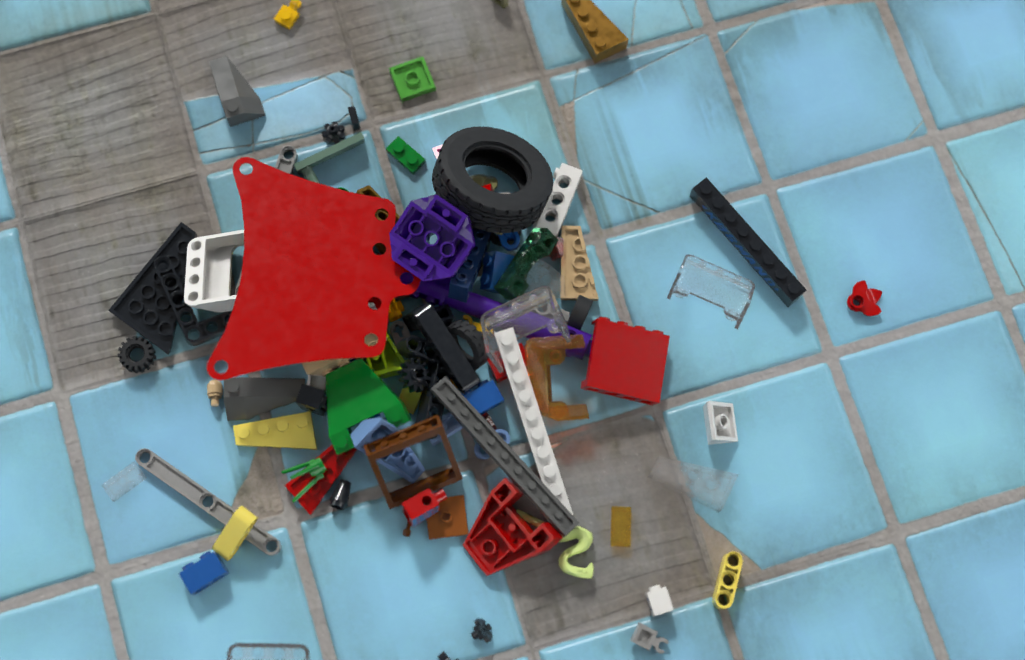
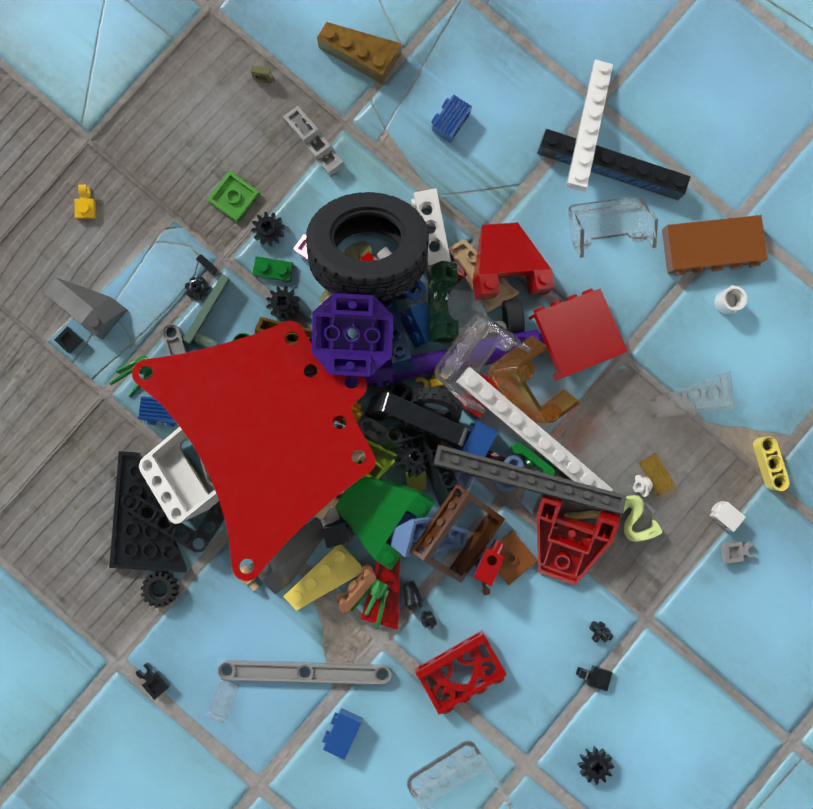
camera: 35 degrees left, 10 degrees up
(78, 430) = (155, 683): none -> black plate
(202, 110) = (68, 339): none -> black plate
(231, 207) = (152, 412): none -> blue brick
(234, 533) = (347, 686): light yellow beam -> none
(246, 167) = (146, 369): none -> green plant
(297, 457) = (356, 589): none -> nougat plate
(318, 567) = (433, 669): none -> red fence
(340, 524) = (428, 620): none -> black plate
(395, 193) = (275, 302): none -> black gear
(426, 115) = (266, 222): none -> black gear
(507, 74) = (314, 141): none -> light grey slope
(519, 443) = (531, 458): none -> green plate
(601, 527) = (642, 485): none -> white plate
(610, 259) = (508, 252): none -> red wedge
(633, 123) = (451, 118): none -> blue brick
(720, 422) = (684, 336): white slope -> none
(744, 196) = (589, 126): none -> white plate
(779, 416) = (731, 300): none -> white piece
(794, 362) = (714, 245): none -> dark orange brick
(867, 299) = (739, 153): red plate -> none

